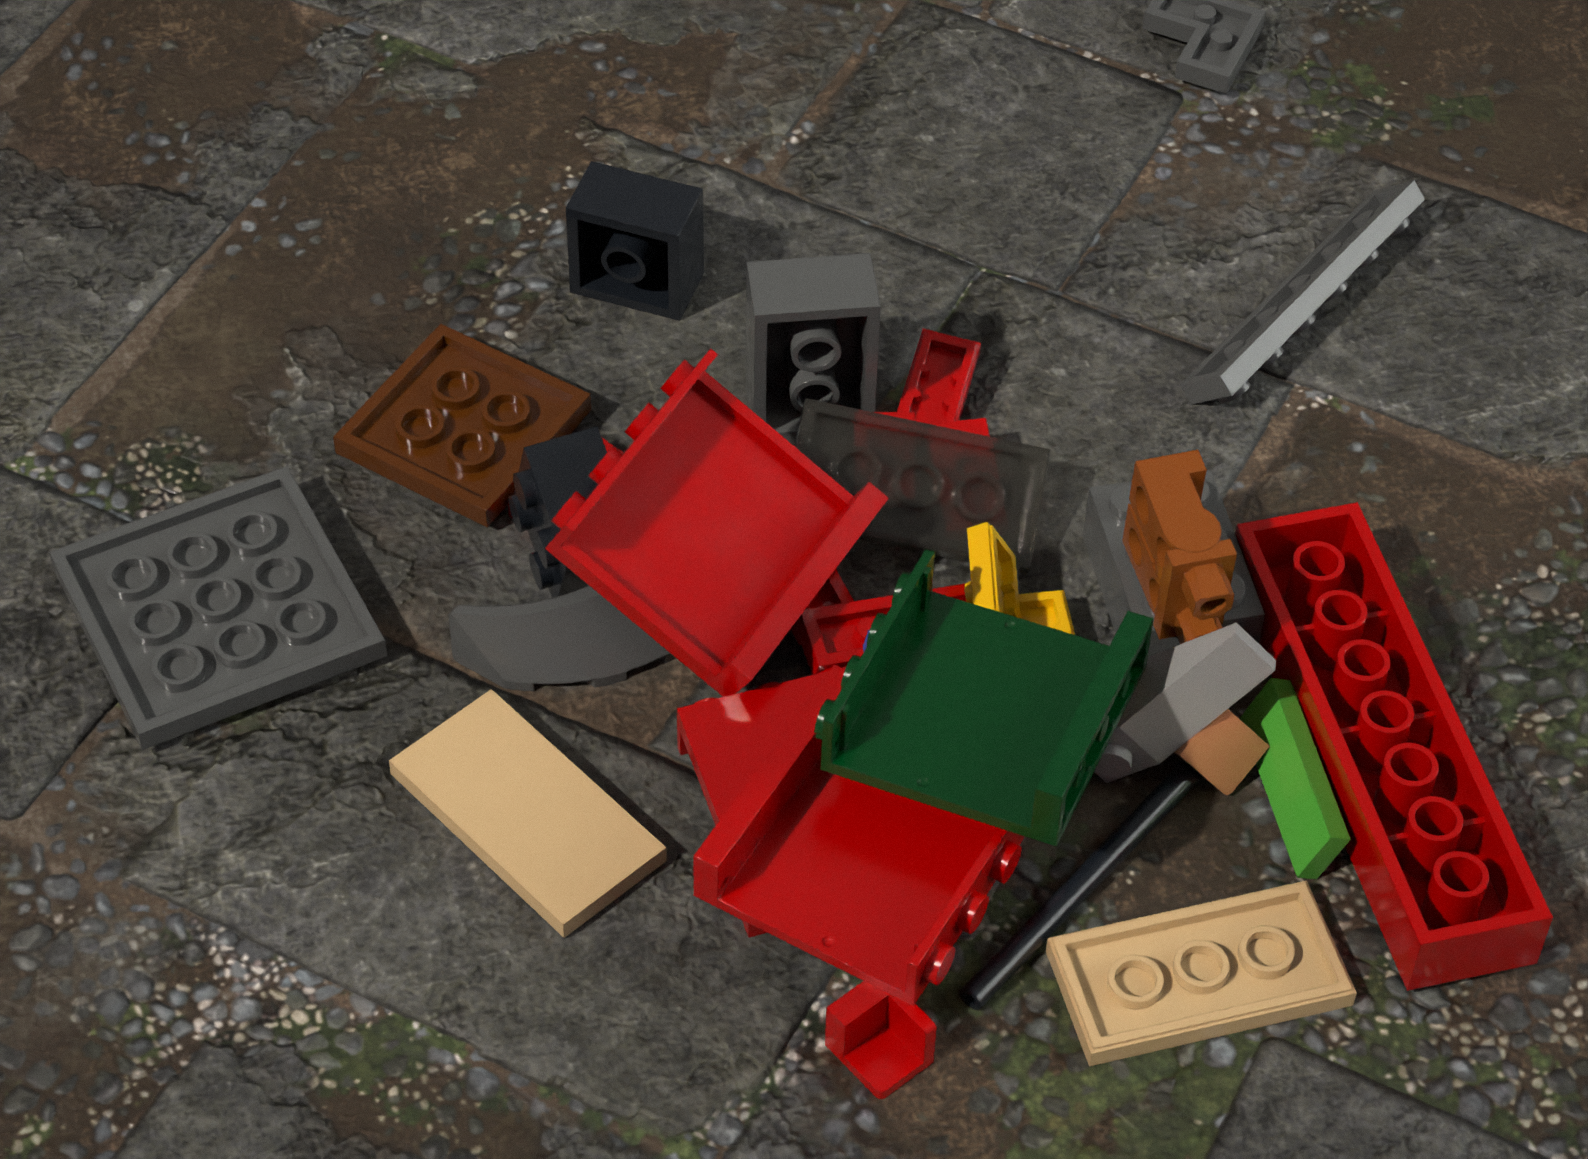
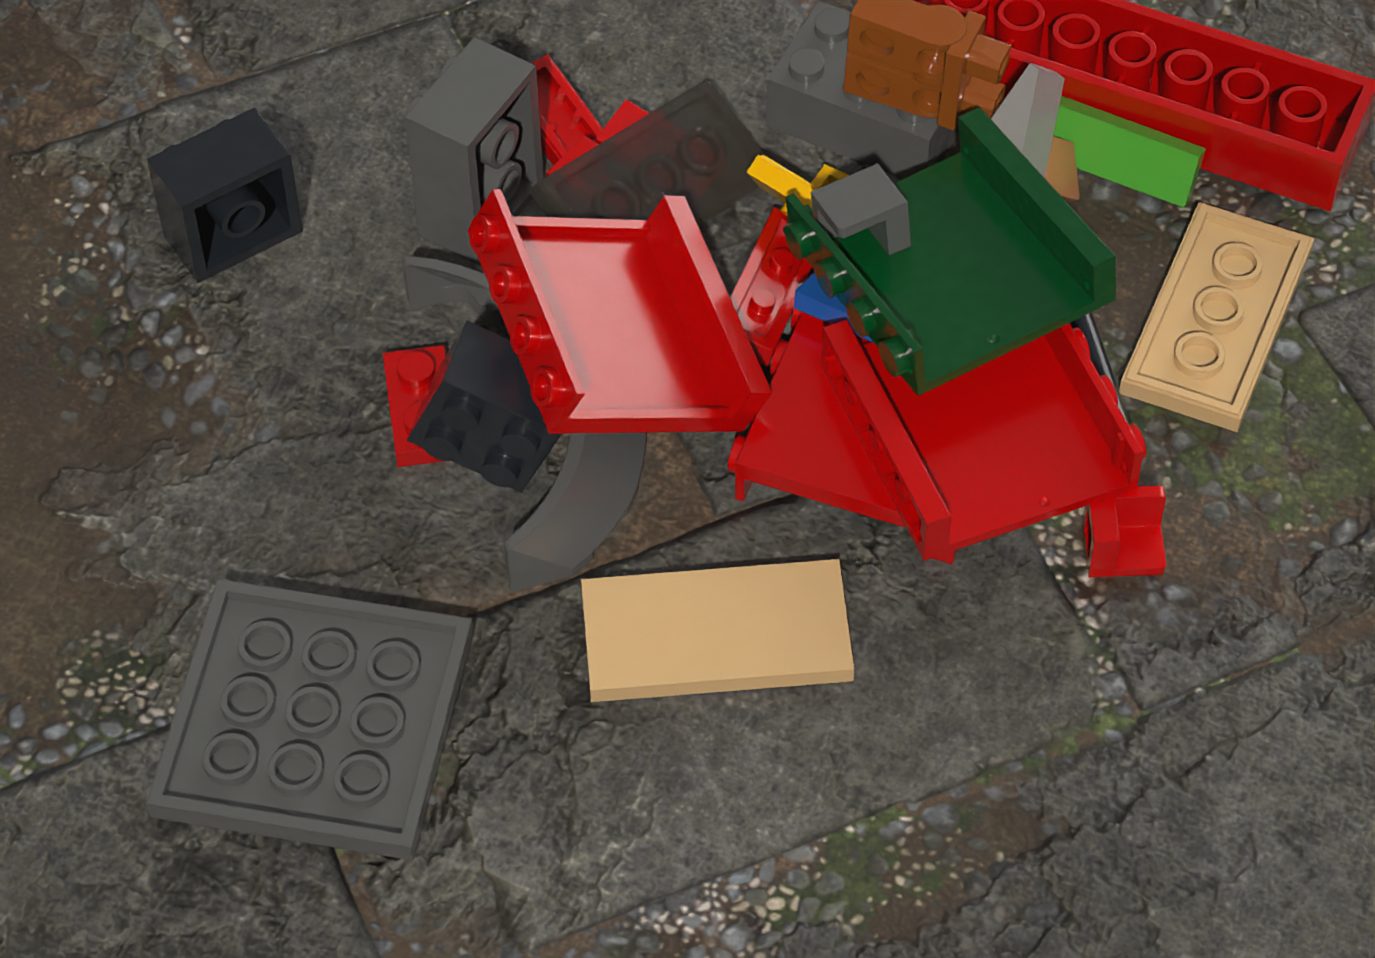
camera: 50 degrees left, 5 degrees up
(459, 423) = (283, 435): reddish brown plate -> none
(968, 600) = (864, 202): none -> dark grey panel

